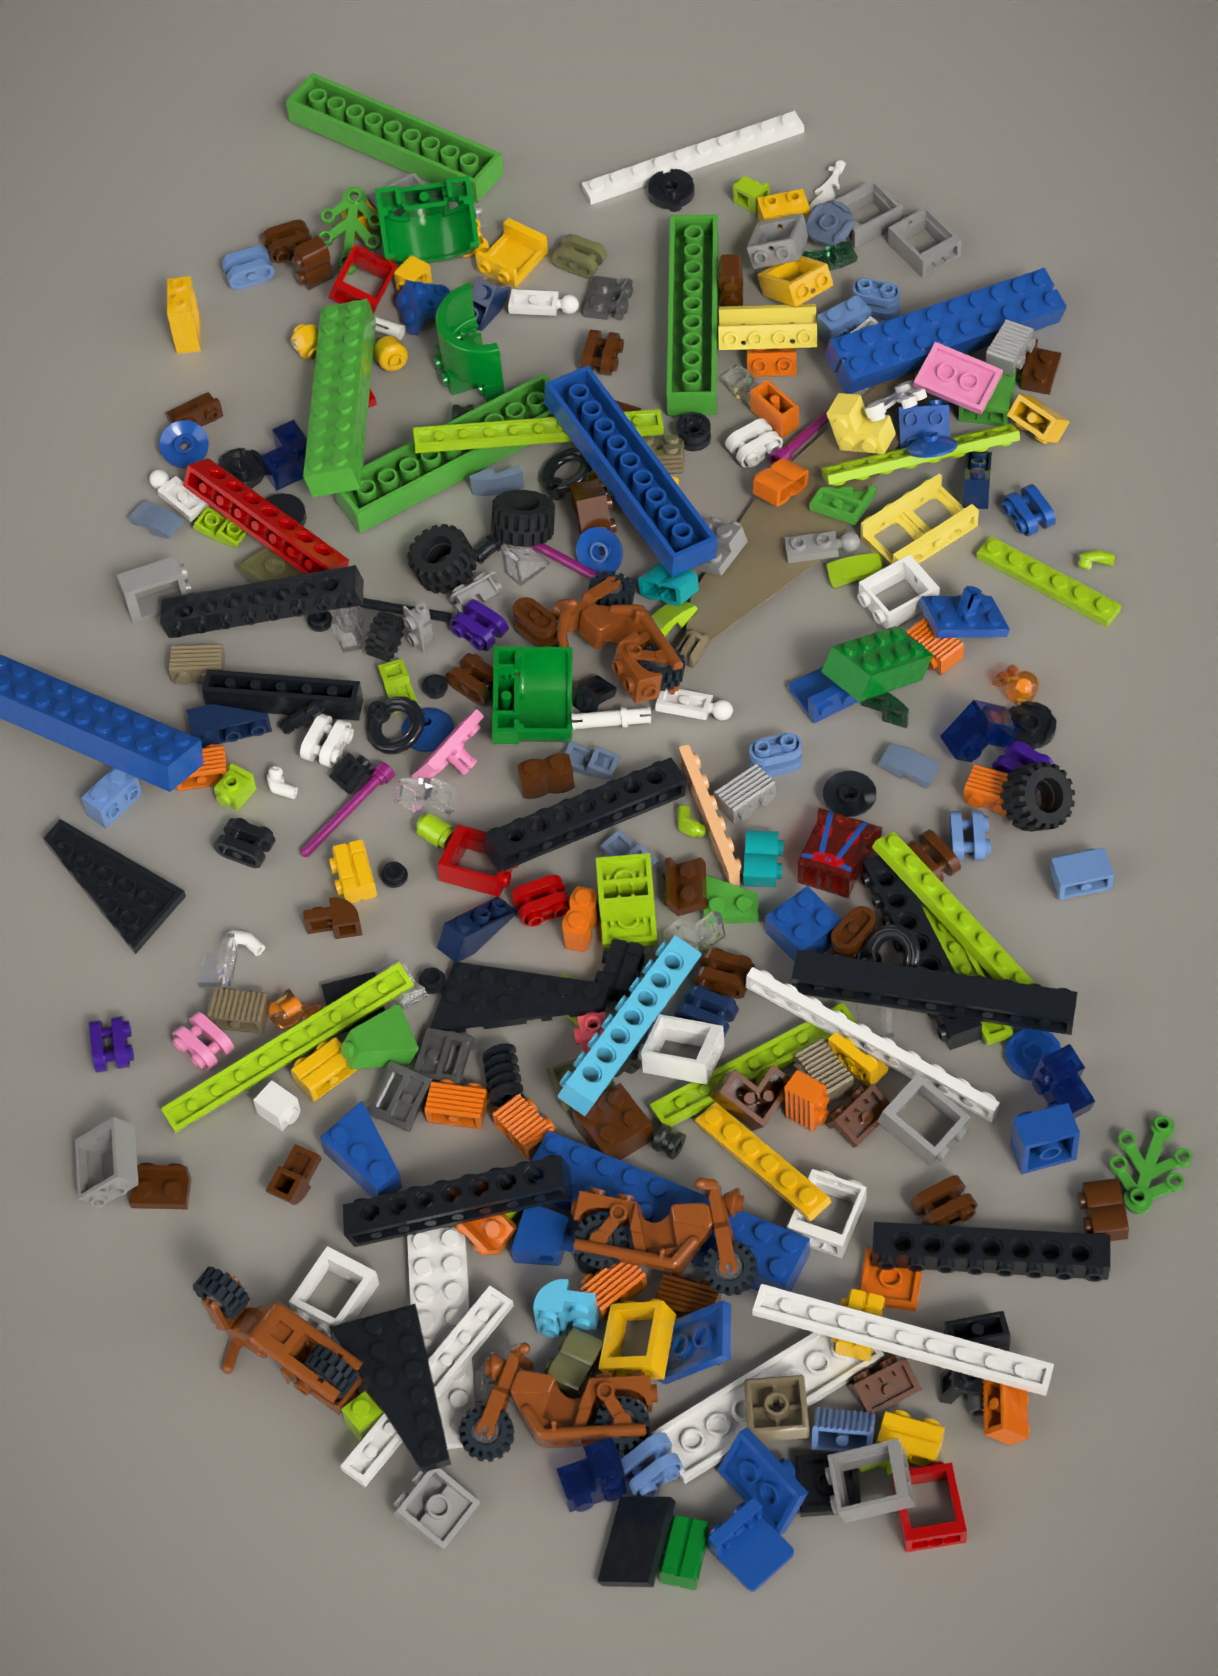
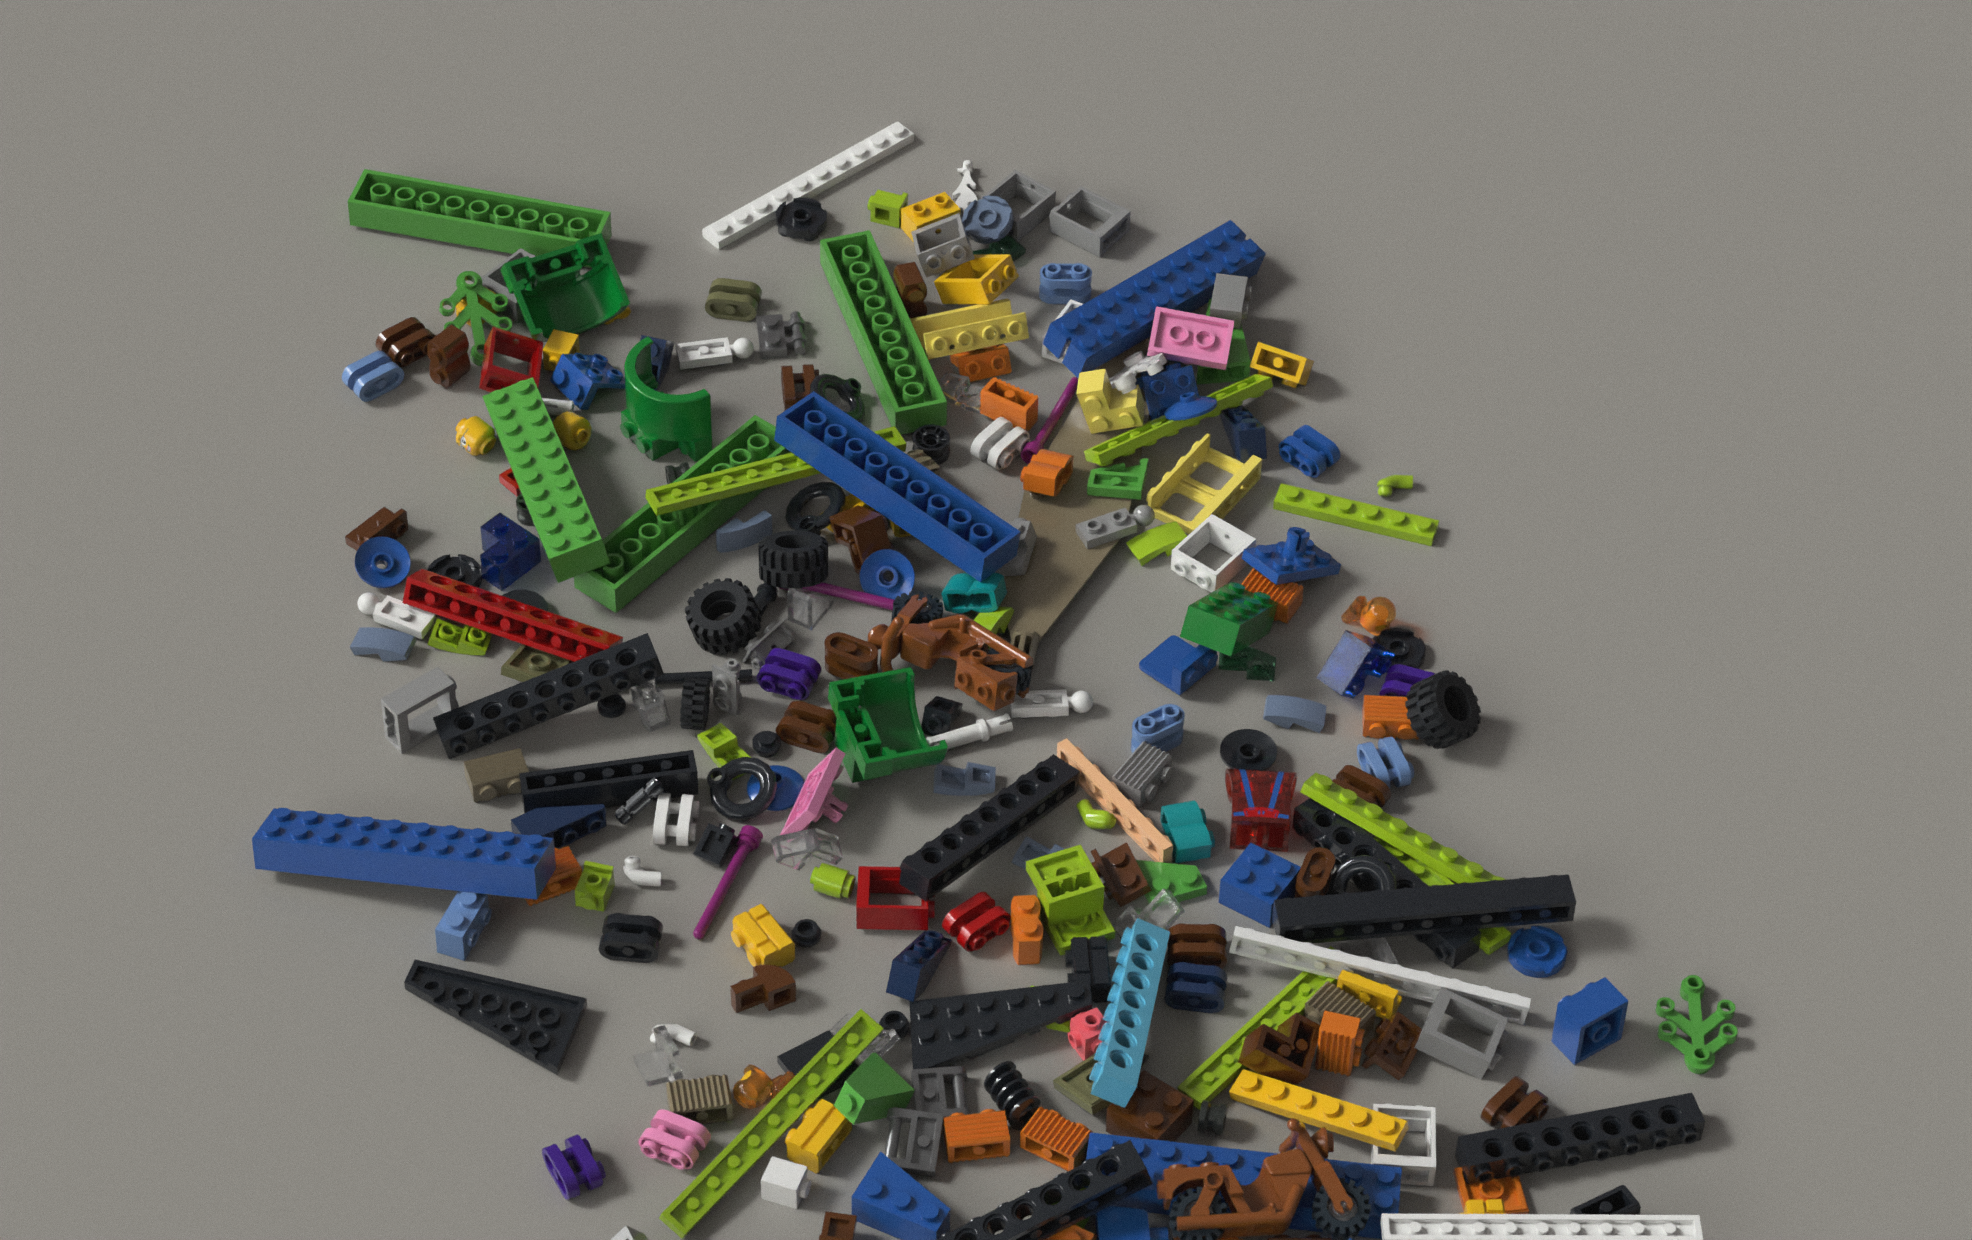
camera: 25 degrees left, 10 degrees down
(183, 314) = (328, 432): yellow window -> none
(513, 253) = (659, 308): yellow panel -> none
(546, 776) = (927, 802): reddish brown brick -> none
(642, 365) = (847, 389): none -> black piece
(684, 1031) = (1187, 1010): white window -> none
(842, 318) = (1043, 308): medium blue brick -> none
(1039, 370) = (1261, 322): reddish brown bracket -> none
(1061, 1082) = (1580, 960): clear blue brick -> none
(1081, 873) = (1513, 773): medium blue brick -> none
(1104, 1209) = (1672, 1072): reddish brown brick -> none

